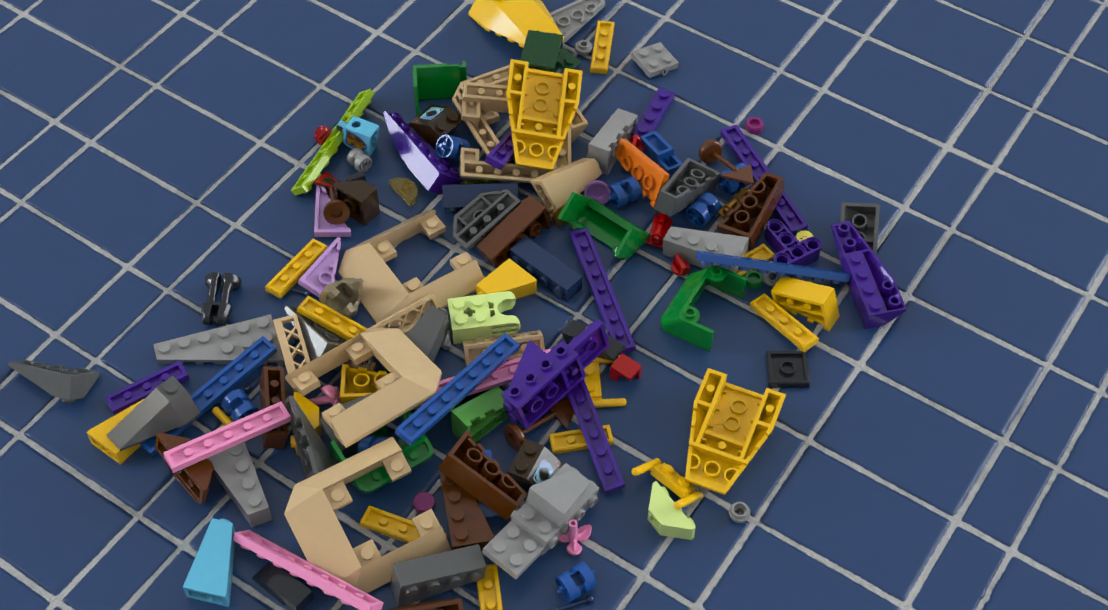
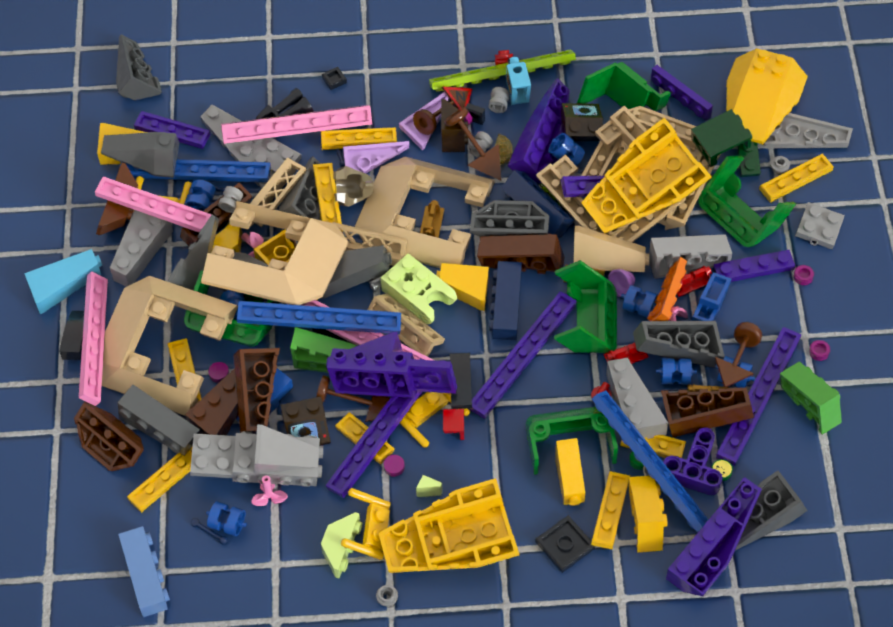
camera: 55 degrees right, 5 degrees up
(220, 248) = (334, 78): none -> black tile
(242, 297) = (296, 124): none -> bright pink plate
(277, 379) = (228, 202): none -> light grey wheel
(387, 196) = (483, 140): none -> light grey wheel
(411, 201) = (489, 161): none -> reddish brown piece
(423, 269) = (432, 219): none -> pearl gold hinge
(473, 56) = (681, 92): none -> dark purple plate
(611, 97) = (735, 215): none -> green windscreen
(624, 434) = (394, 465): none -> magenta tile
(666, 422) = (428, 487): none -> yellowish green slope
(685, 94) = (803, 275): none -> magenta tile
(734, 323) = (570, 471): none -> yellow slope
(791, 148) = (813, 394): none -> bright green wedge

